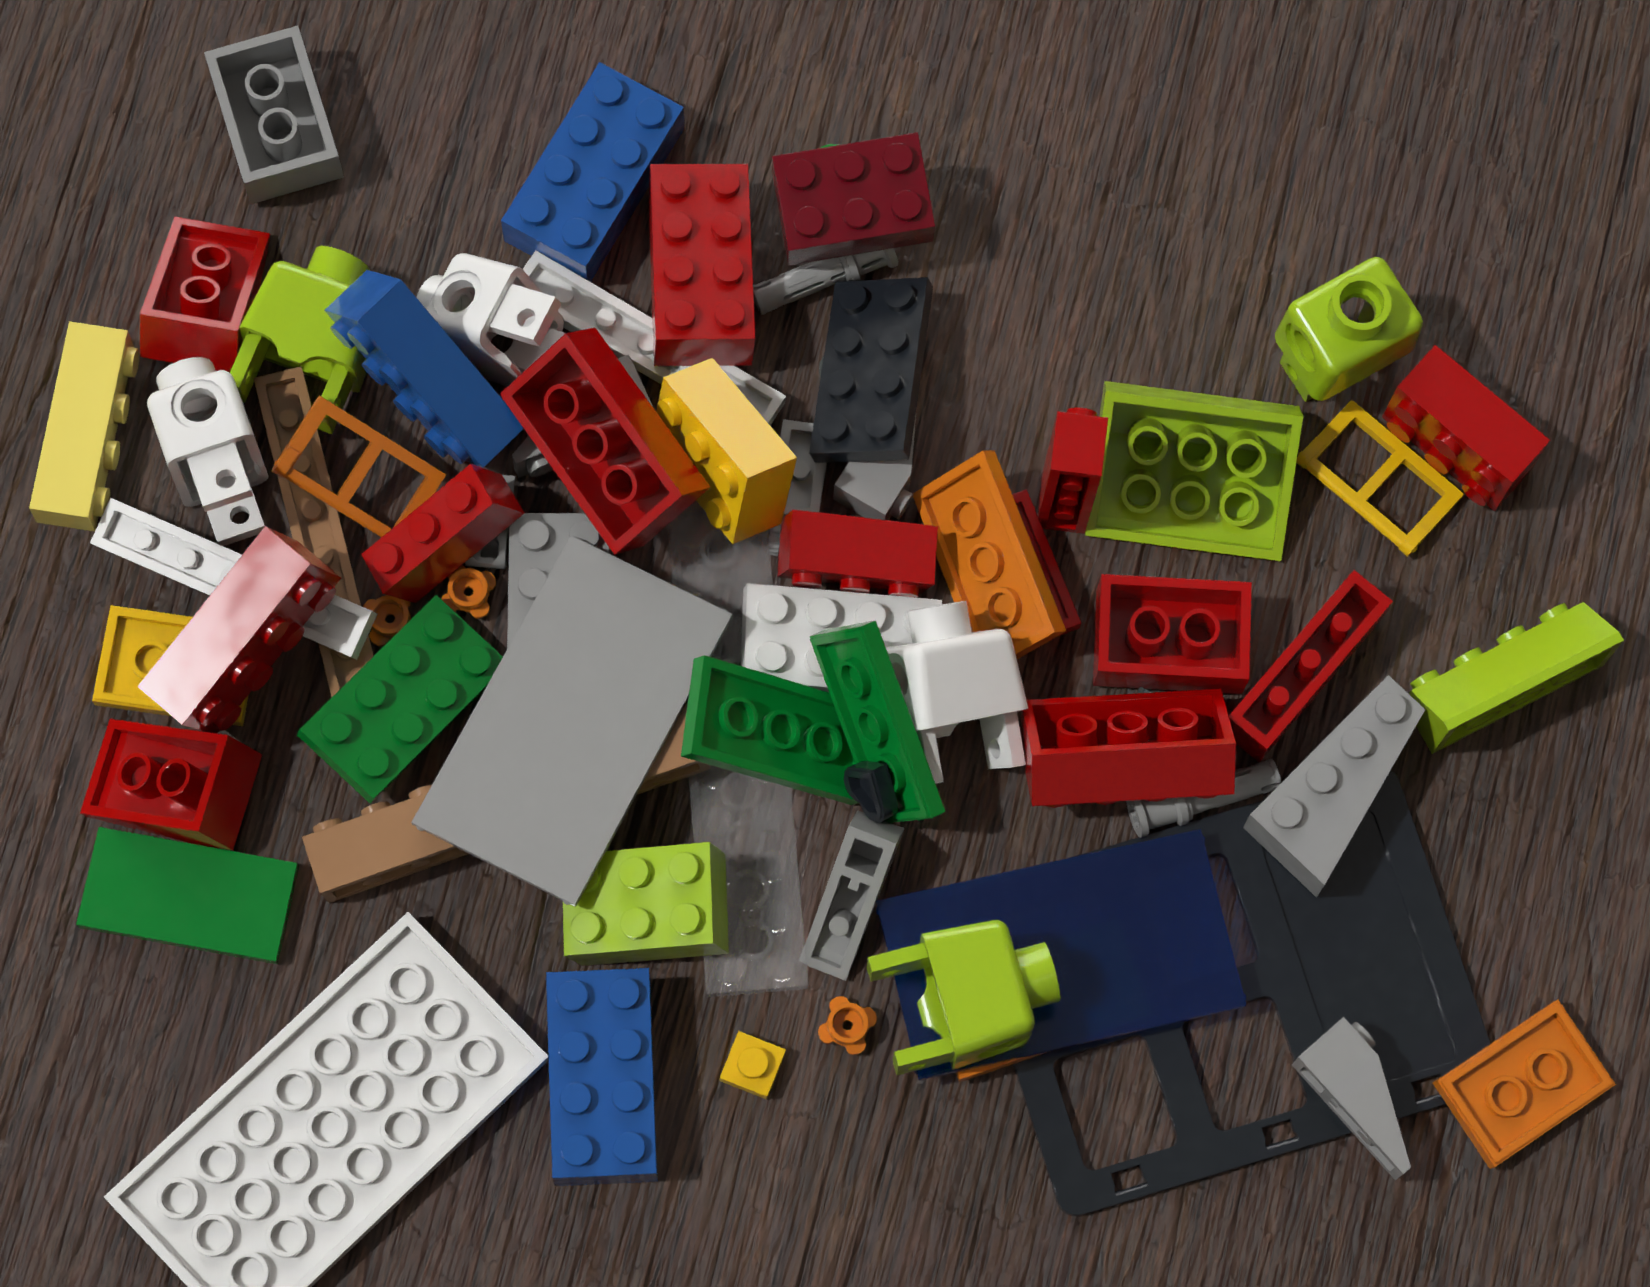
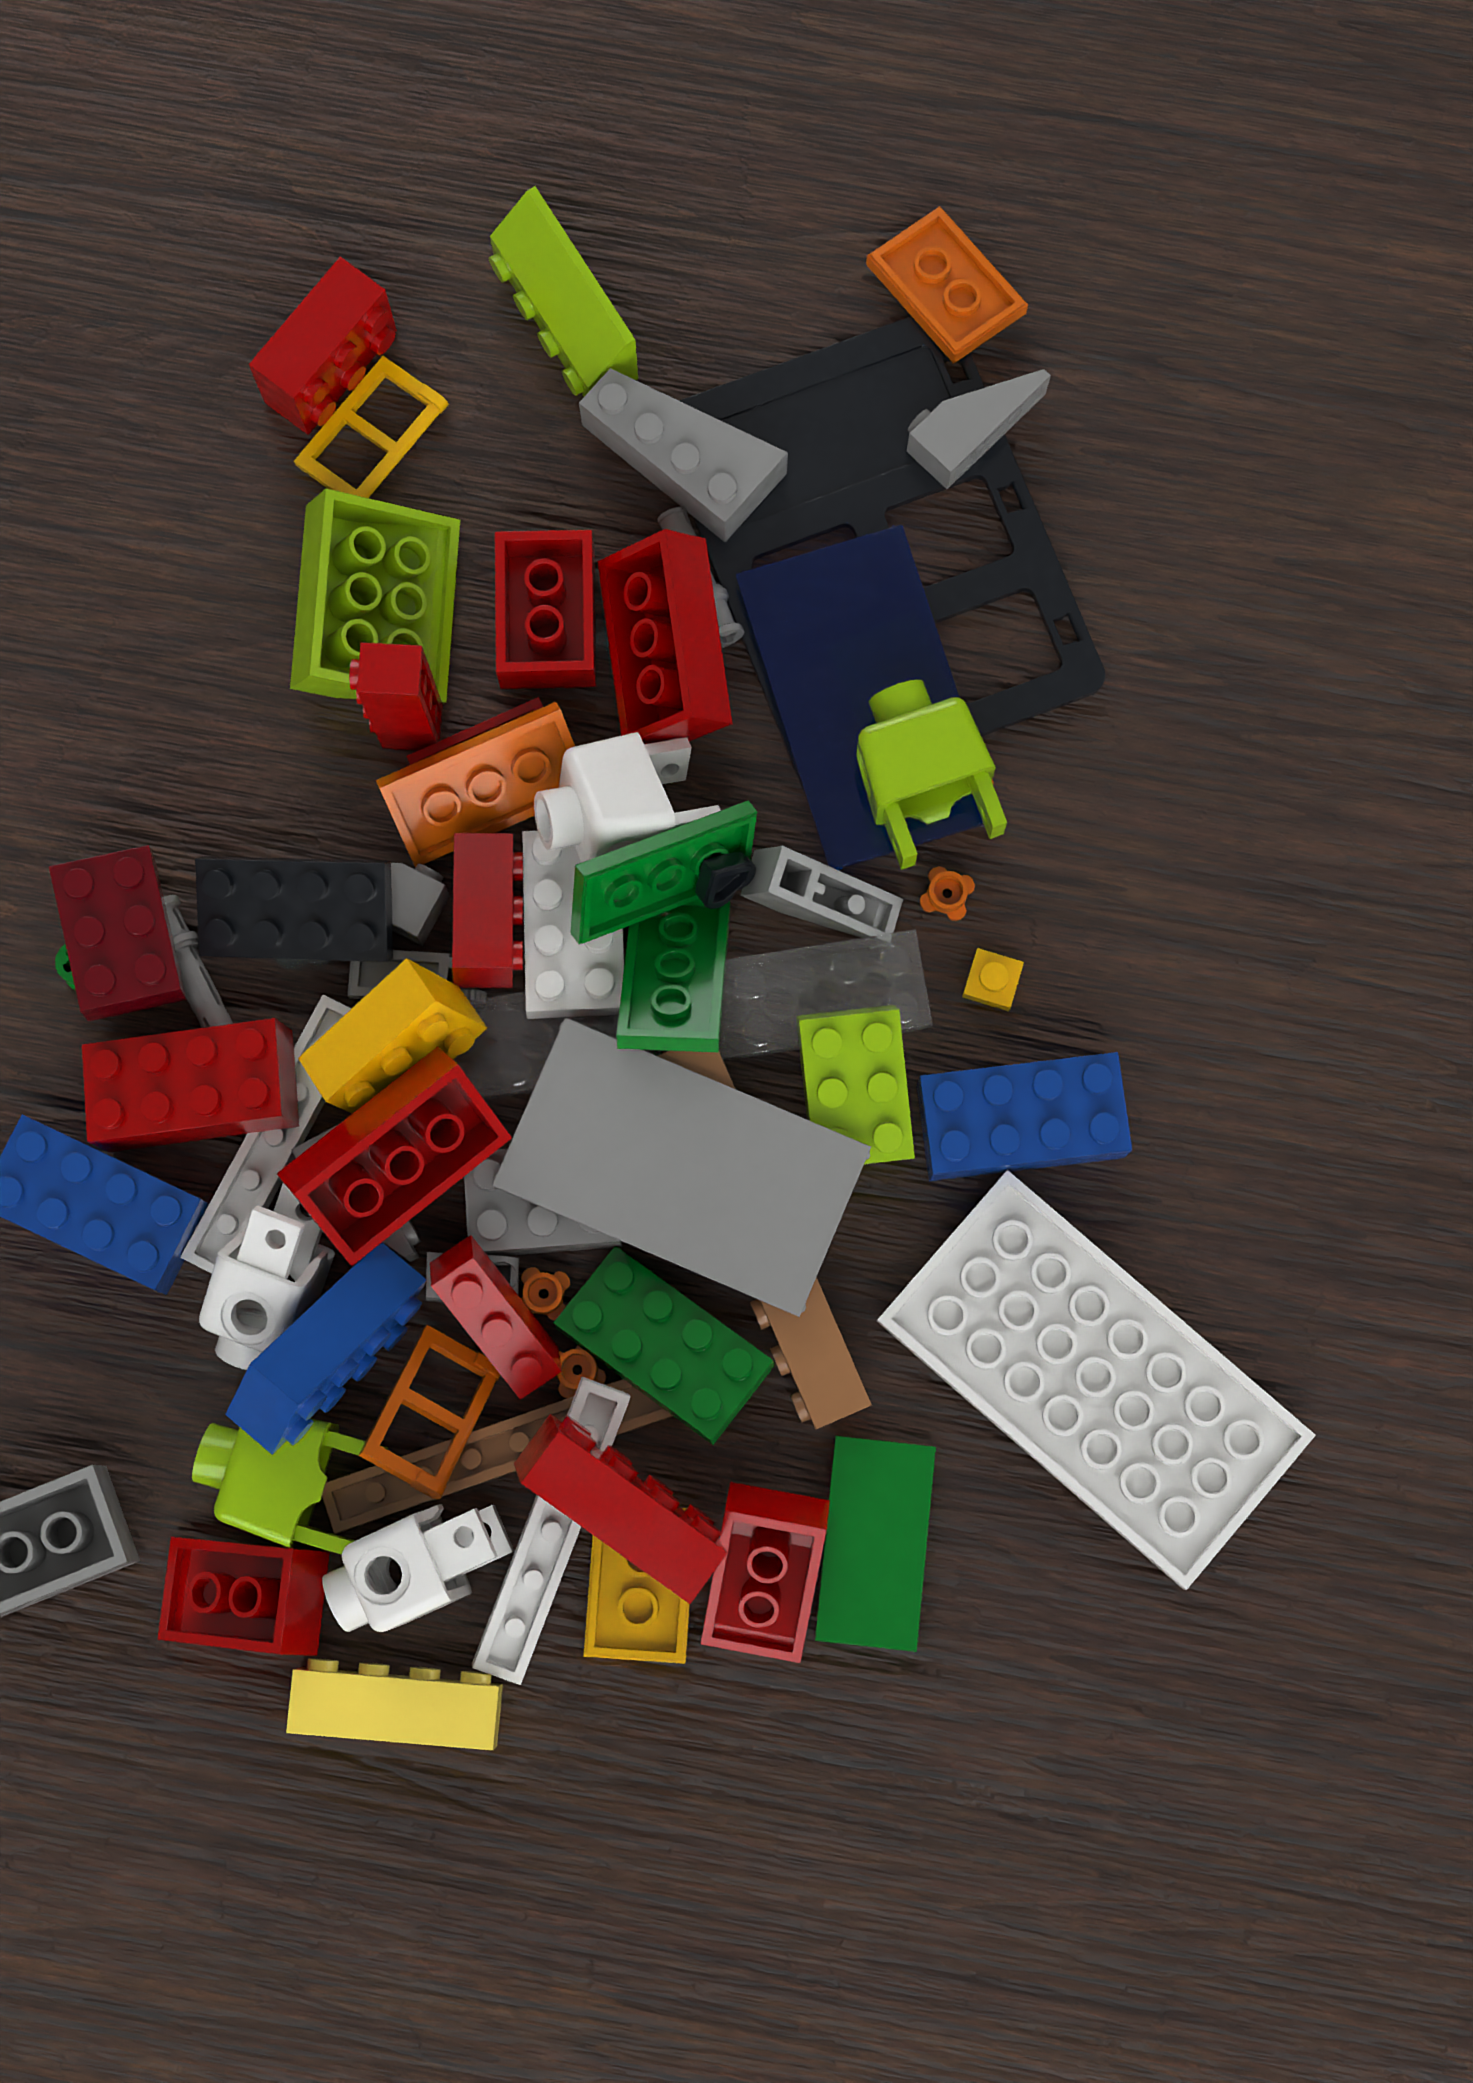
camera: 90 degrees left, 5 degrees up
(1307, 665) = (565, 481): red brick -> none
(1331, 352) = (231, 443): lime piece -> none

